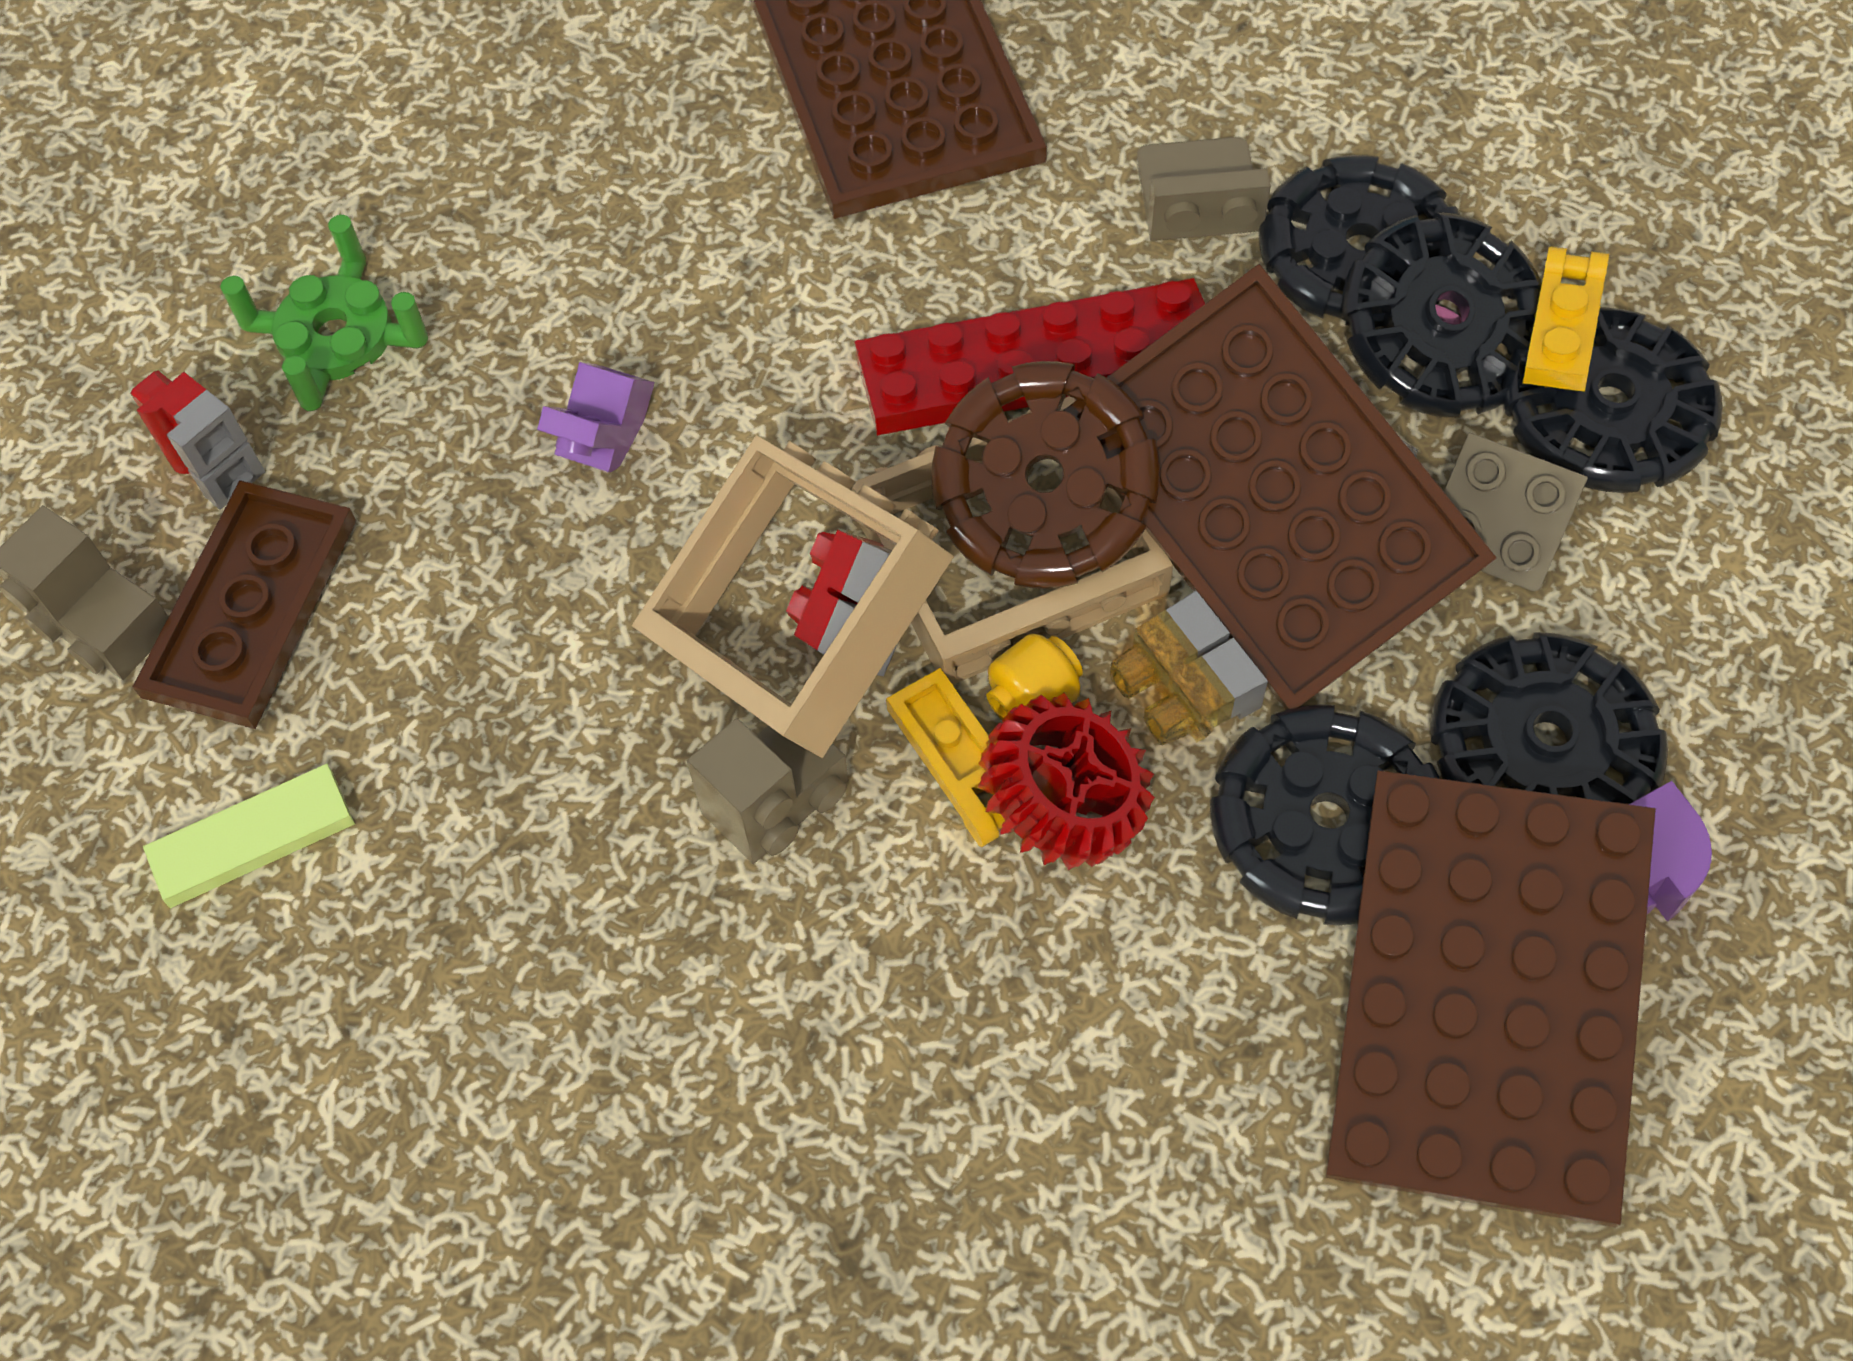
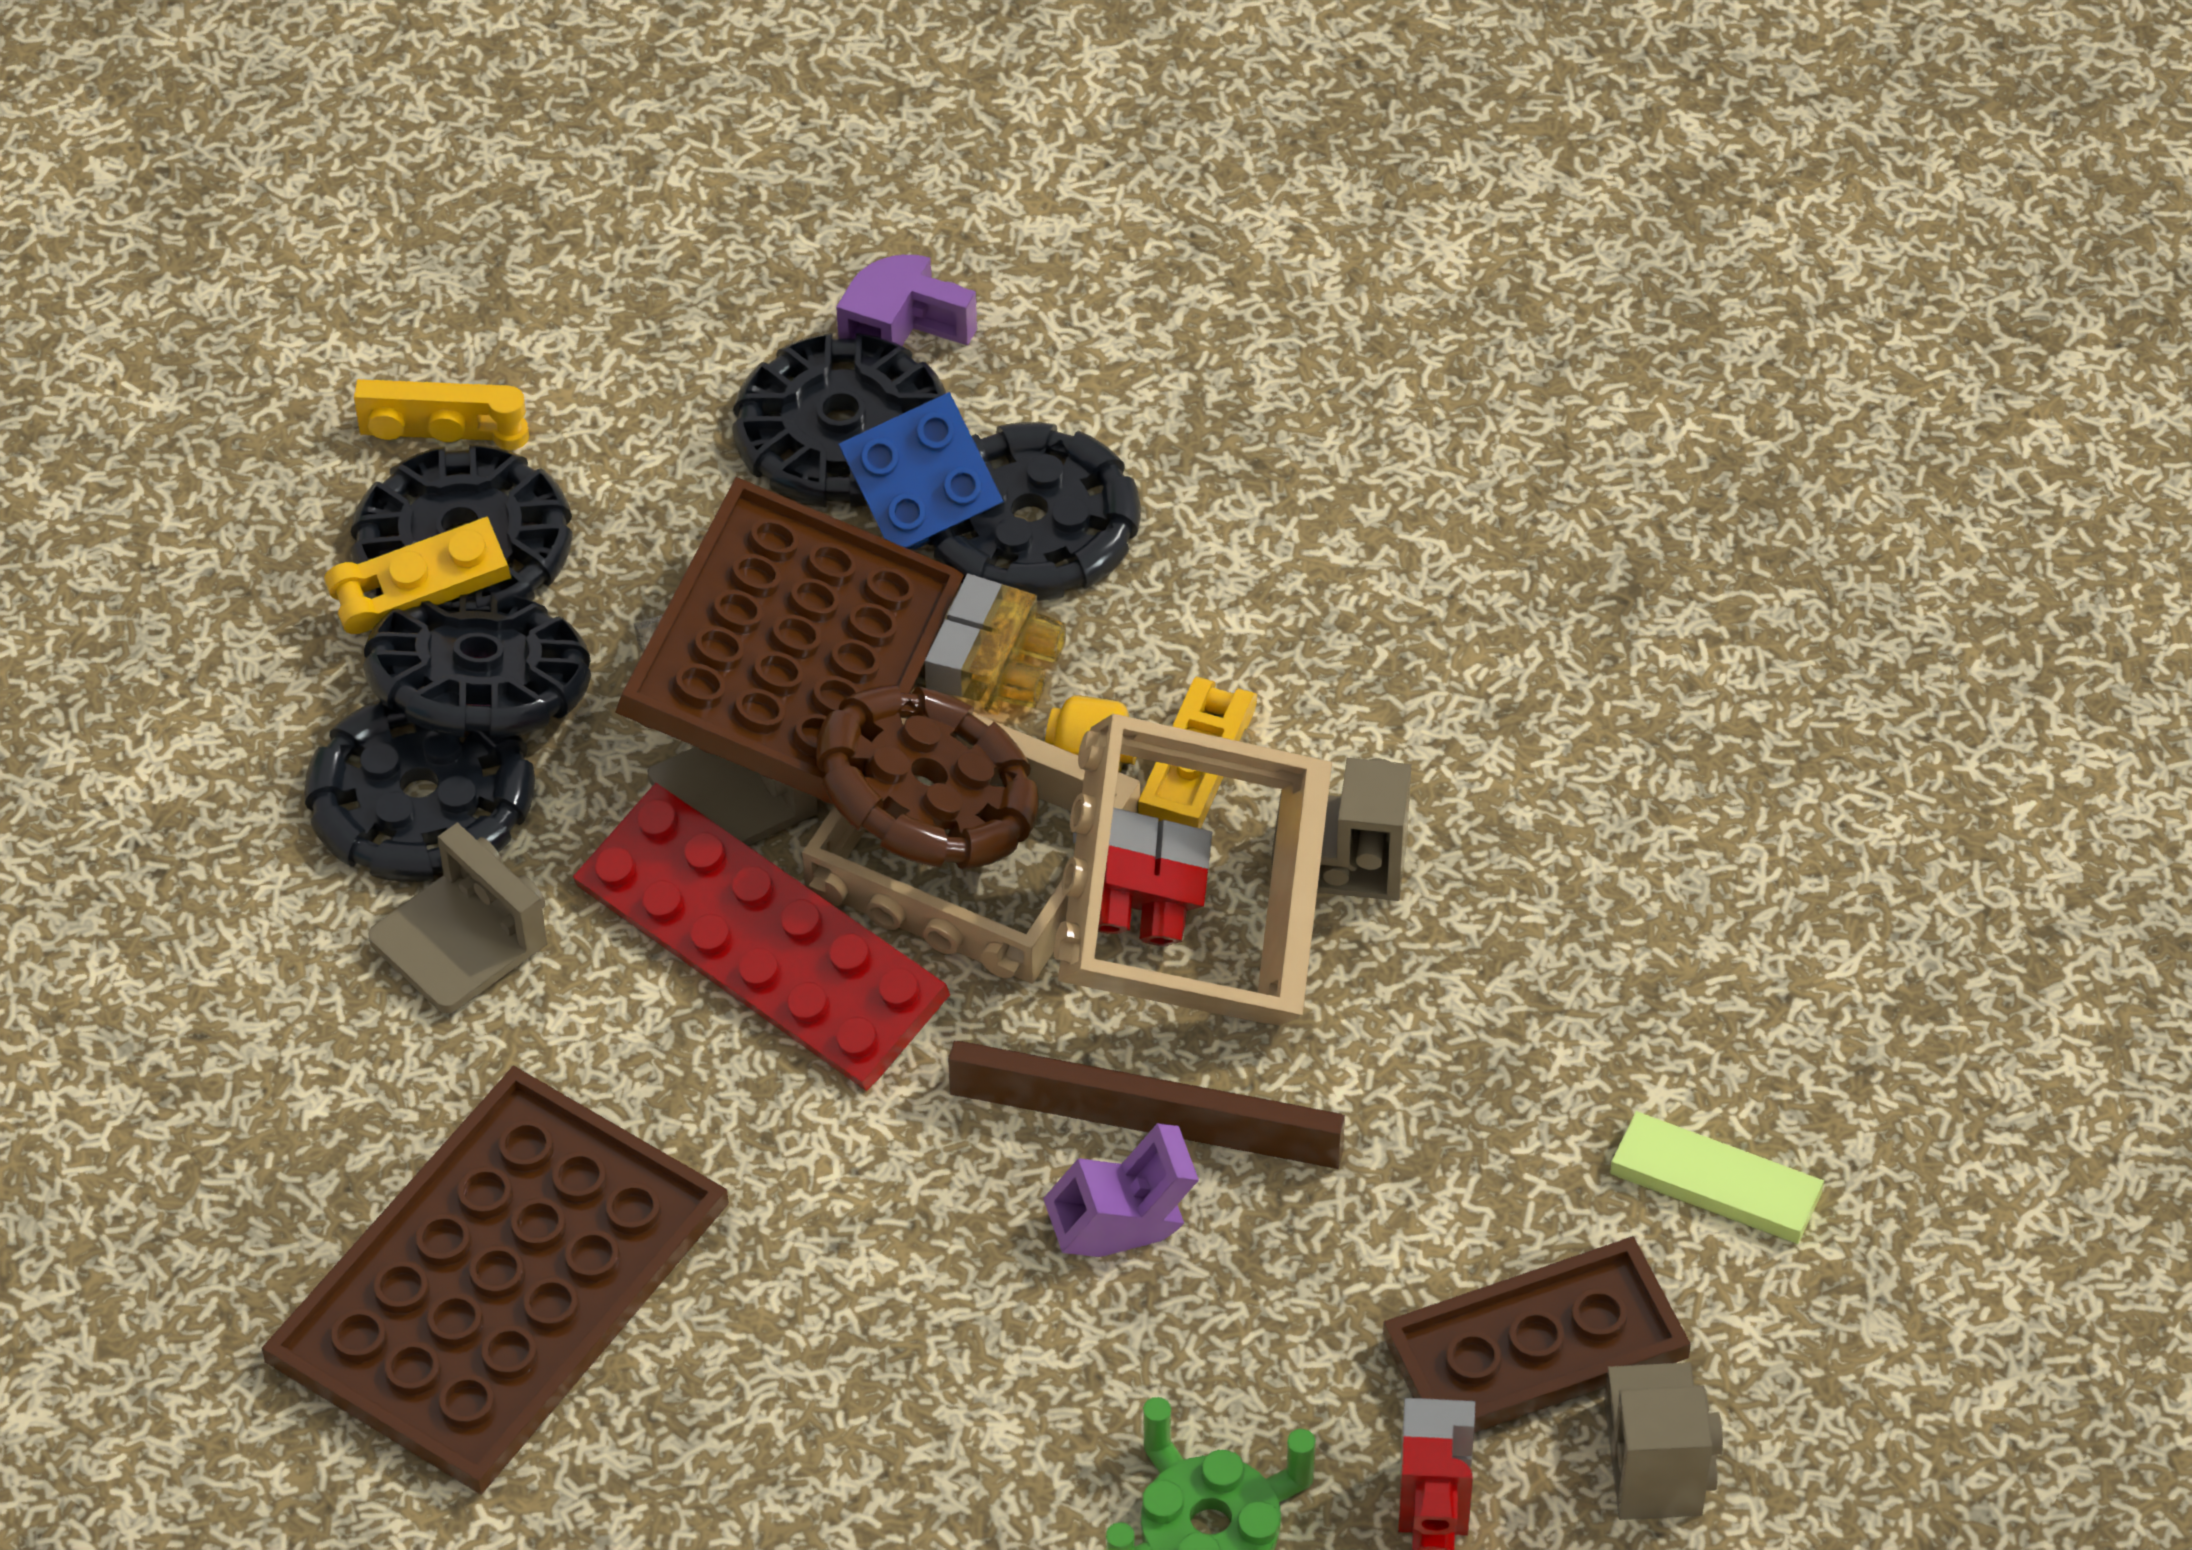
camera: 130 degrees left, 10 degrees down
(659, 494) = (1144, 1101): none -> reddish brown tile
(1046, 787) = (1168, 649): red gear -> none
(1409, 711) = (921, 473): none -> blue hinge
(1495, 998) = (1098, 332): reddish brown plate -> none
(1514, 506) = (631, 529): dark tan bracket -> none
(1754, 448) = (442, 411): none -> yellow plate

